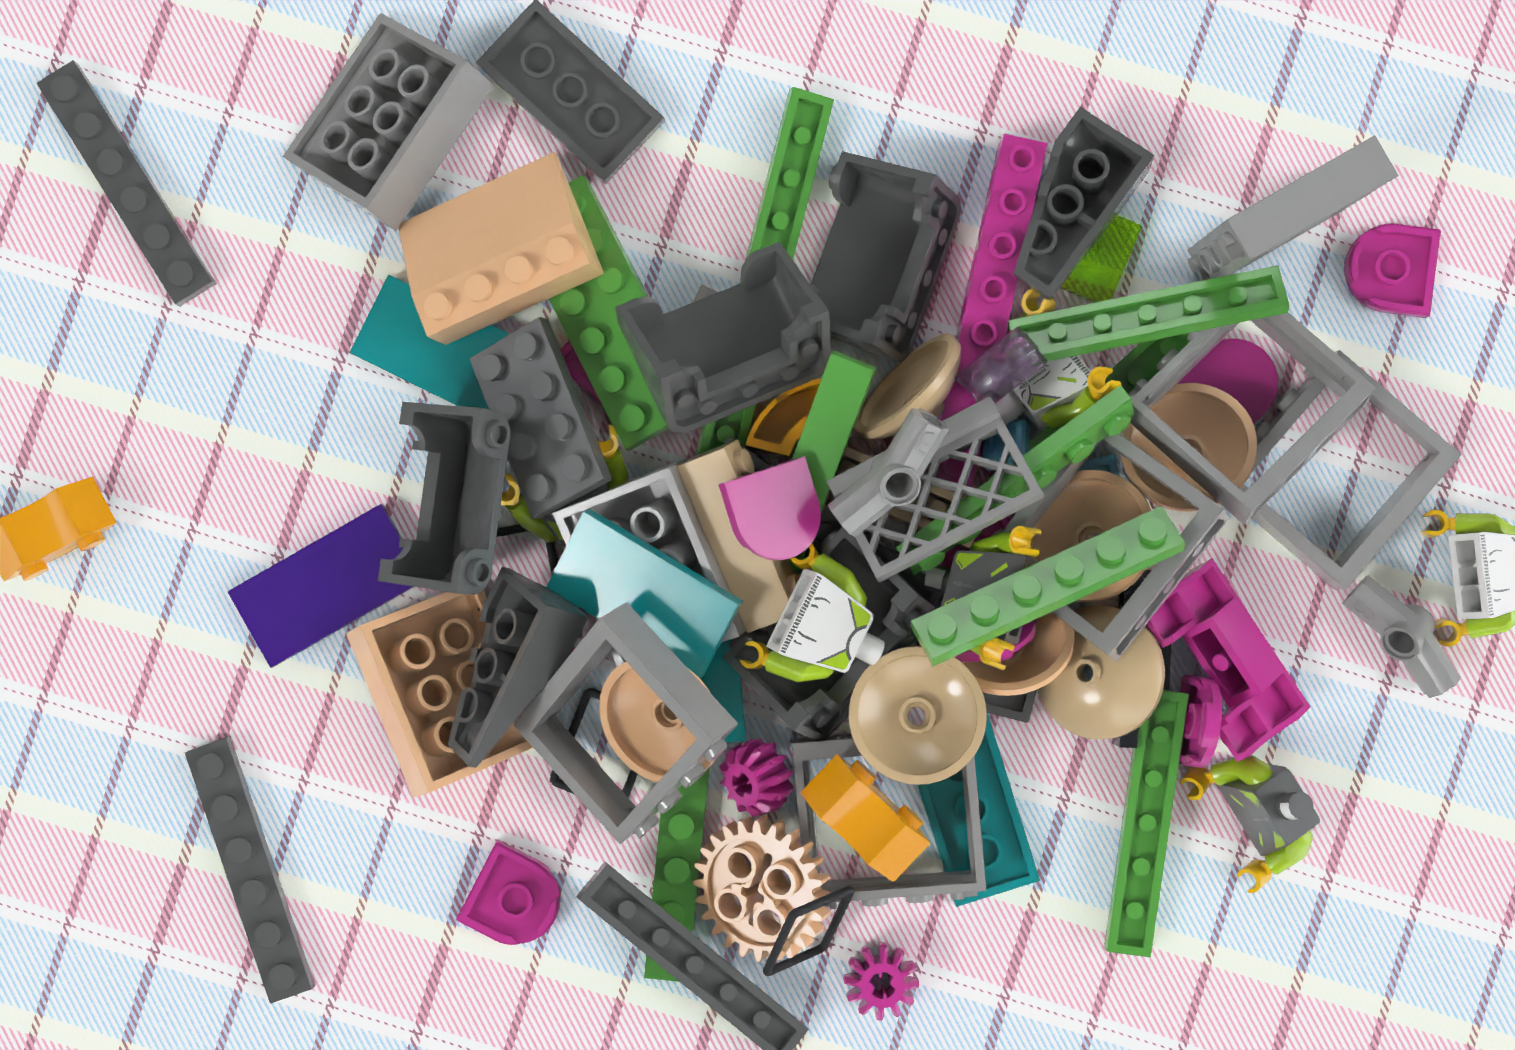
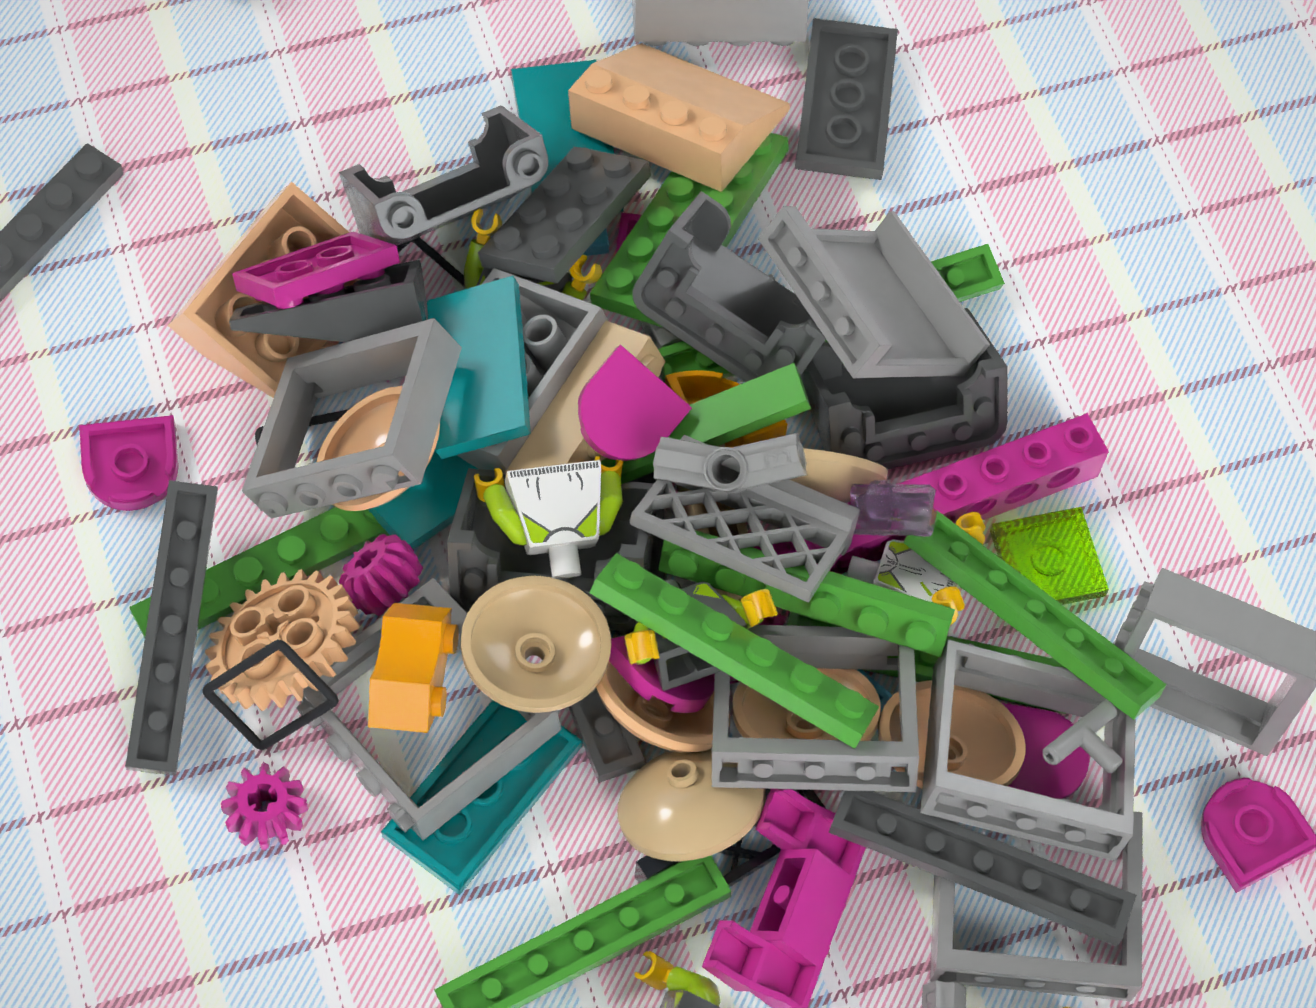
camera: 50 degrees right, 25 degrees down
(320, 587) = (272, 148): dark purple tile -> none
(462, 662) = (316, 269): none -> dark pink plate
(802, 235) = (875, 298): none -> light grey panel
(1082, 192) = (1095, 512): dark grey wedge -> none
(1201, 720) = (706, 915): dark pink tile -> none
(1273, 360) = (1084, 735): none -> light grey piece
(1309, 502) = (984, 864): none -> dark grey plate

